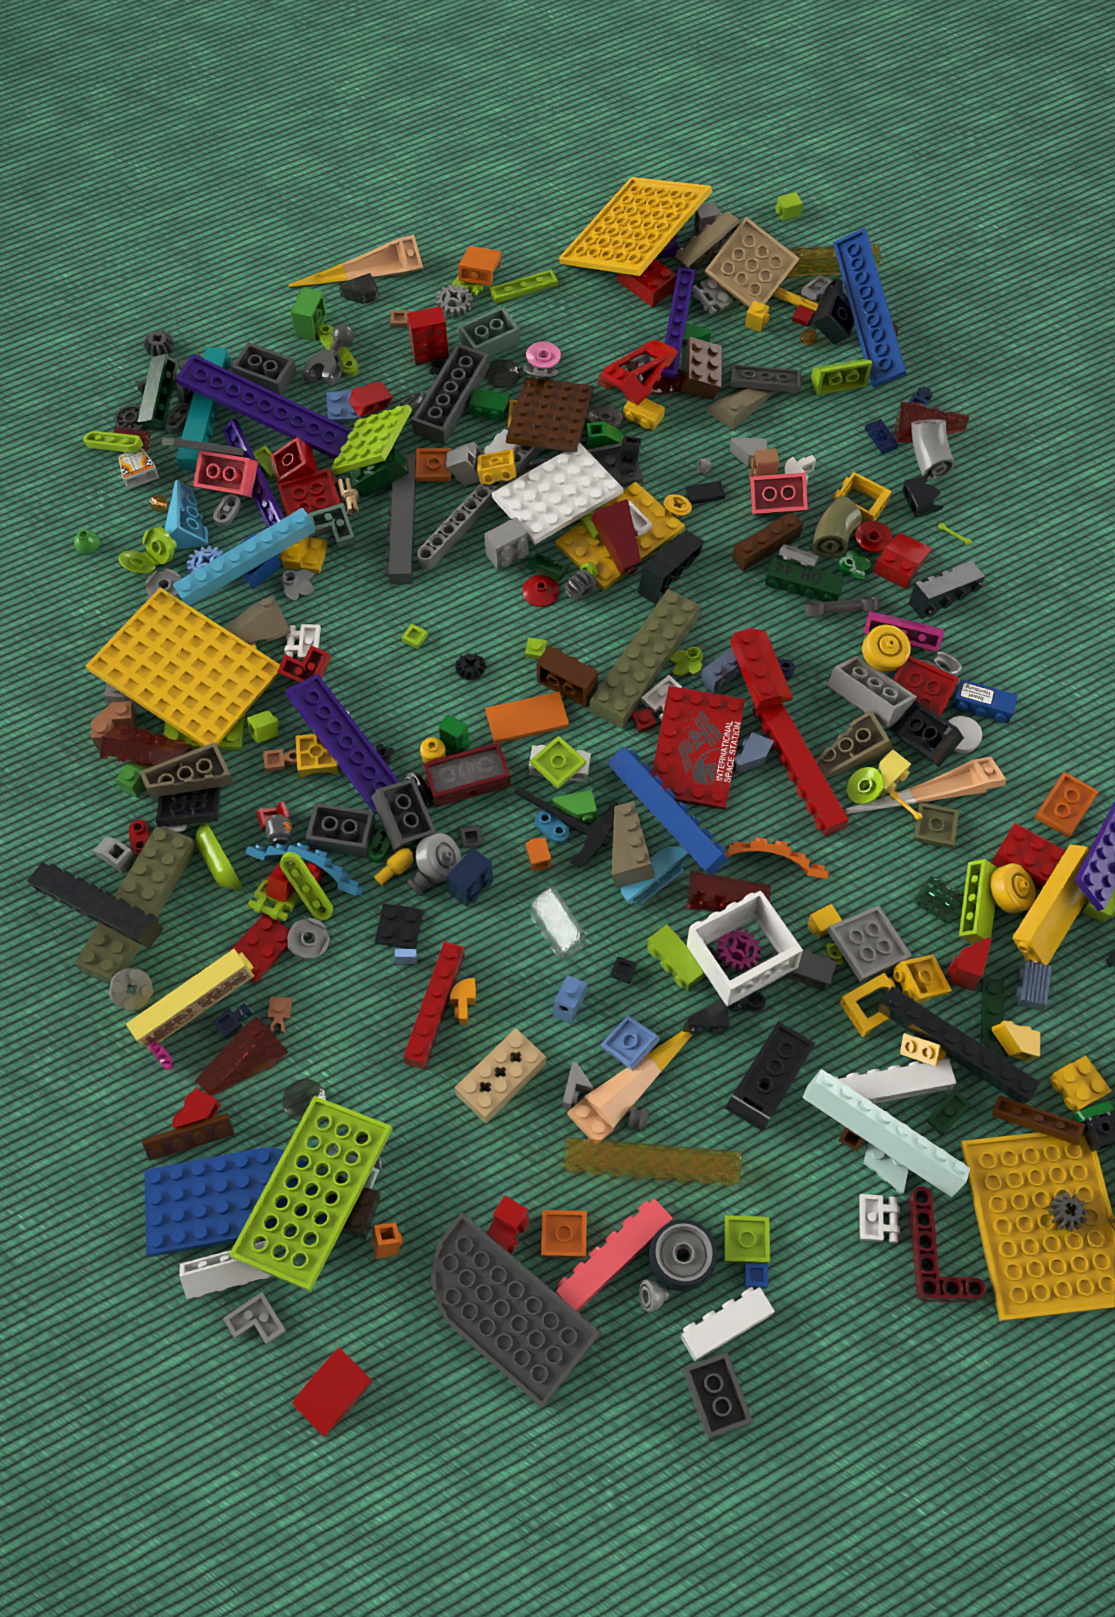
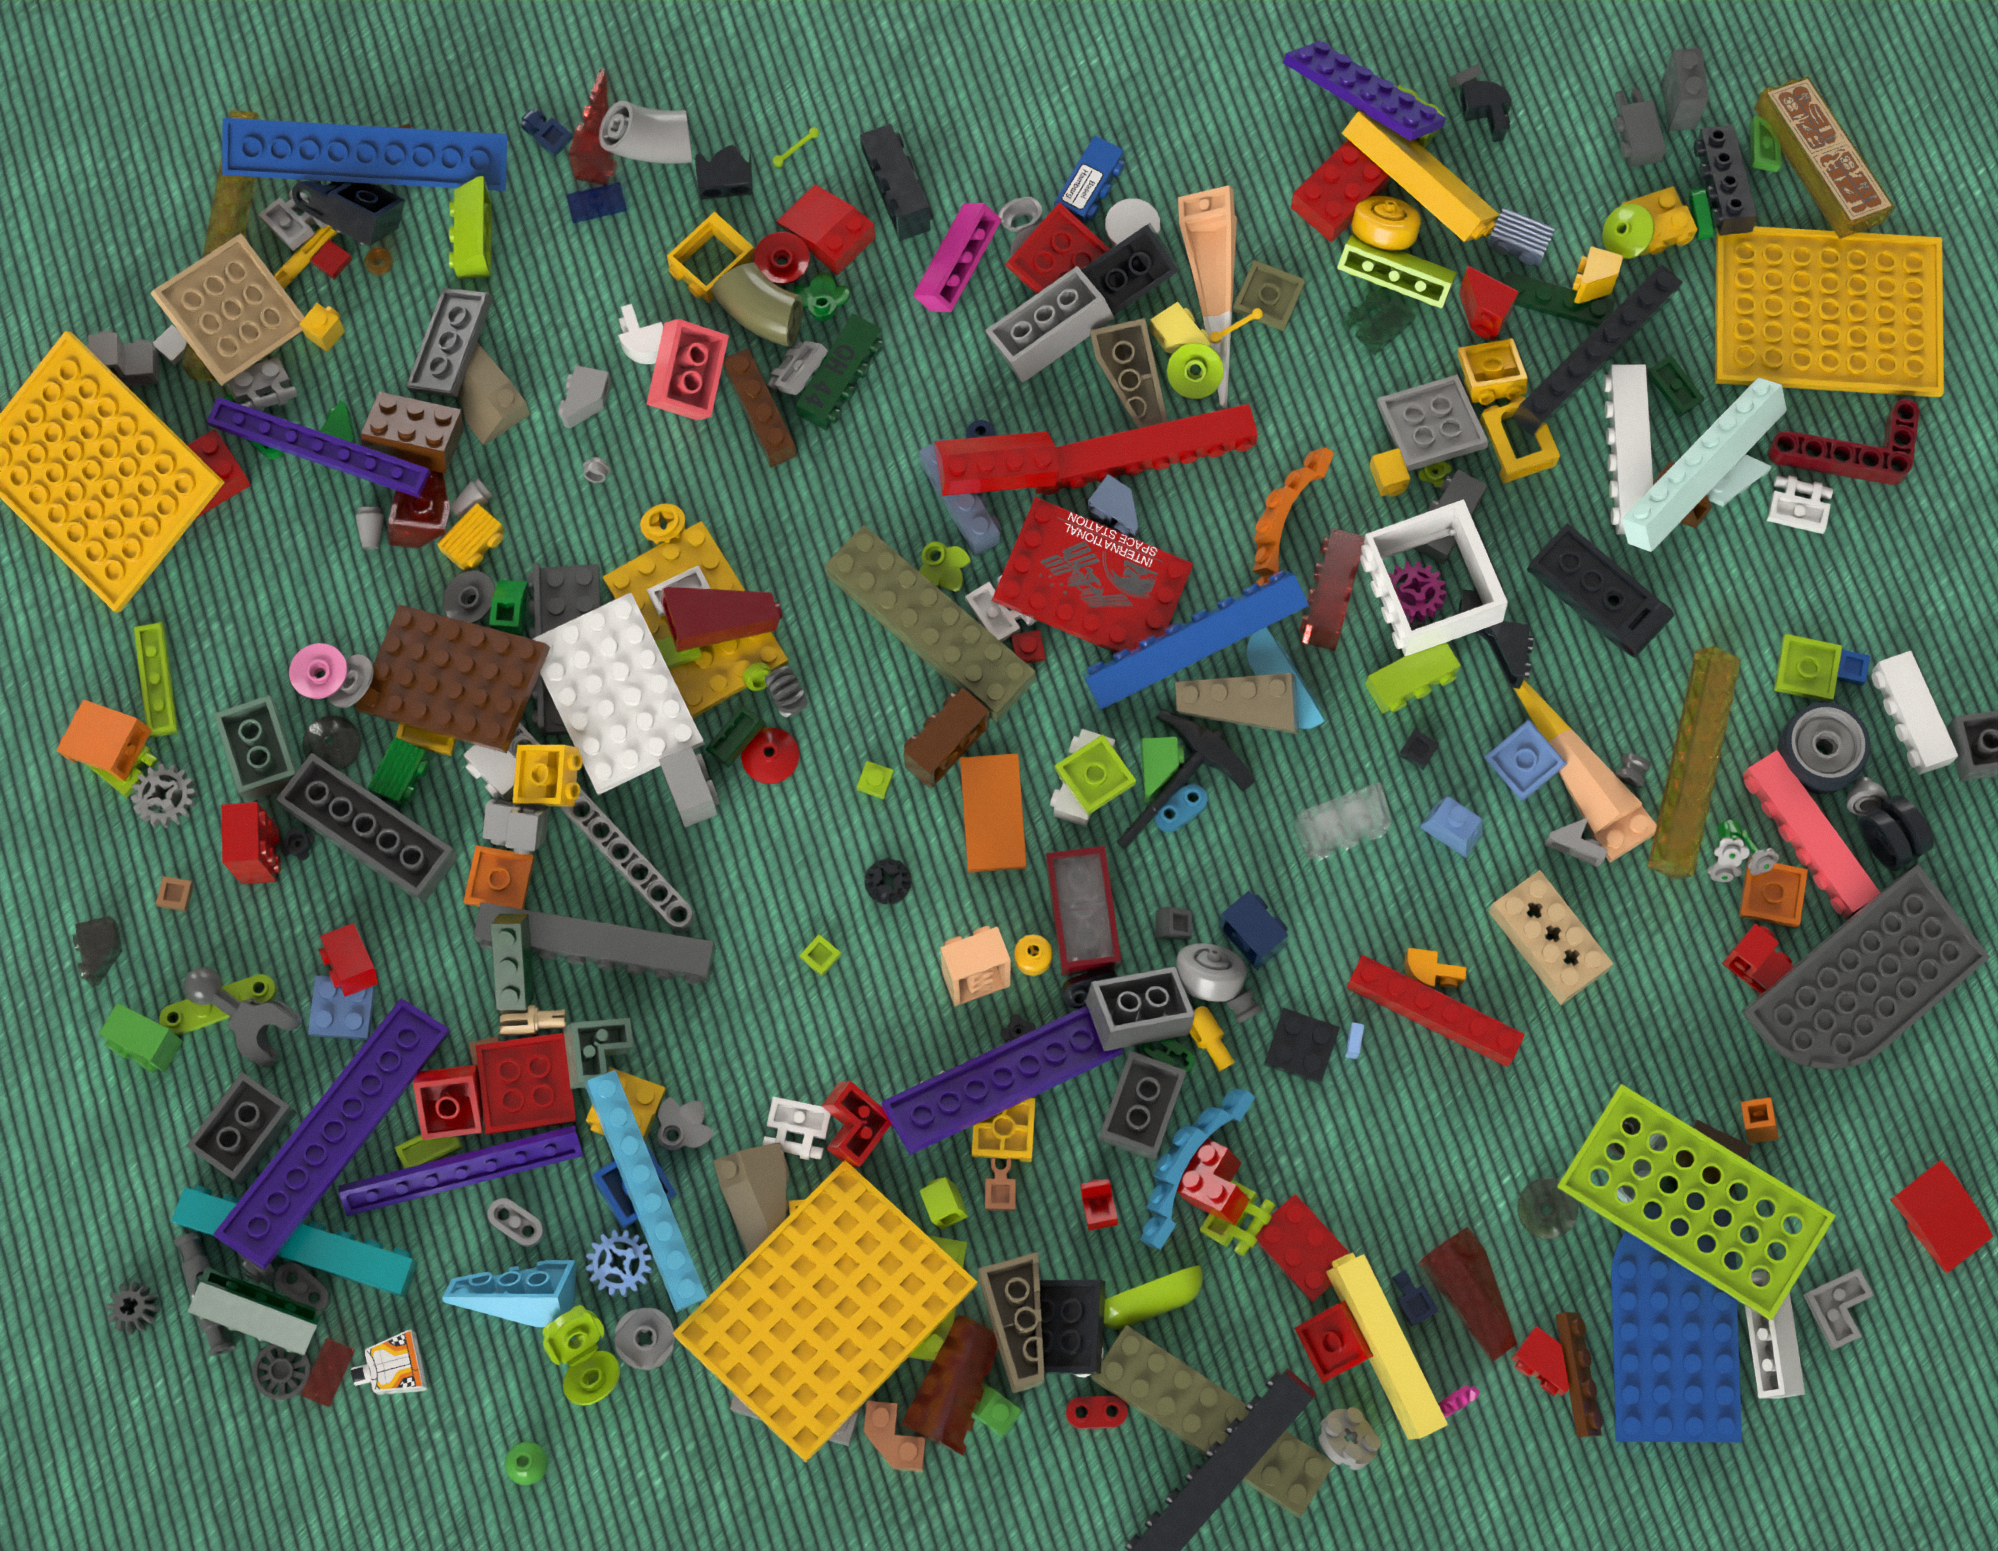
camera: 80 degrees left, 10 degrees up
(113, 441) = (339, 1399): lime plate -> none
(115, 854) = (1119, 1452): light grey slope -> none
(158, 502) = (476, 1334): clear orange plate -> none
(192, 966) = (1333, 1342): none -> red plate
(195, 445) = (404, 1240): dark grey tile -> none
(225, 473) = (455, 1212): coral brick -> none
(278, 829) = (1129, 1196): dark grey head -> none
(279, 1011) = (1405, 1231): nougat plate -> none
(297, 943) = (1302, 1190): light grey plate -> none
(306, 886) = (1237, 1161): lime plate -> none
(371, 439) = (448, 964): lime plate -> none
(391, 259) = (45, 889): light nougat plate -> none
(412, 707) = (975, 965): none -> light nougat brick
(414, 400) = (370, 895): dark grey wheel -> none
(454, 734) = (1016, 917): green brick -> none
(538, 854) = (1224, 832): orange brick -> none
(601, 1196) = (1732, 851): none -> light grey plant
(623, 1315) = (1896, 832): none -> black wheel
(627, 382) = (435, 545): red windscreen -> none
(629, 454) = (566, 573): black brick -> none
(669, 565) = (774, 555): black wedge -> none
(672, 409) = (473, 493): none -> light grey cone
(705, 492) = (643, 479): black tile -> none
(708, 242) = (165, 365): dark tan slope -> none
(764, 463) = (628, 379): medium nougat brick -> none
(789, 206) = (99, 226): lime brick -> none
(865, 603) = (891, 367): dark grey piece -> none
(886, 648) = (991, 286): yellow wheel -> none
(921, 1049) = (1595, 395): yellow hinge -> none
(1038, 1120) = (1705, 281): reddish brown plate -> none
(1062, 1060) = (1637, 235): none -> lime dish
(1064, 1203) = (1828, 279): dark grey gear -> none
(1066, 804) = (1263, 123): orange tile -> none

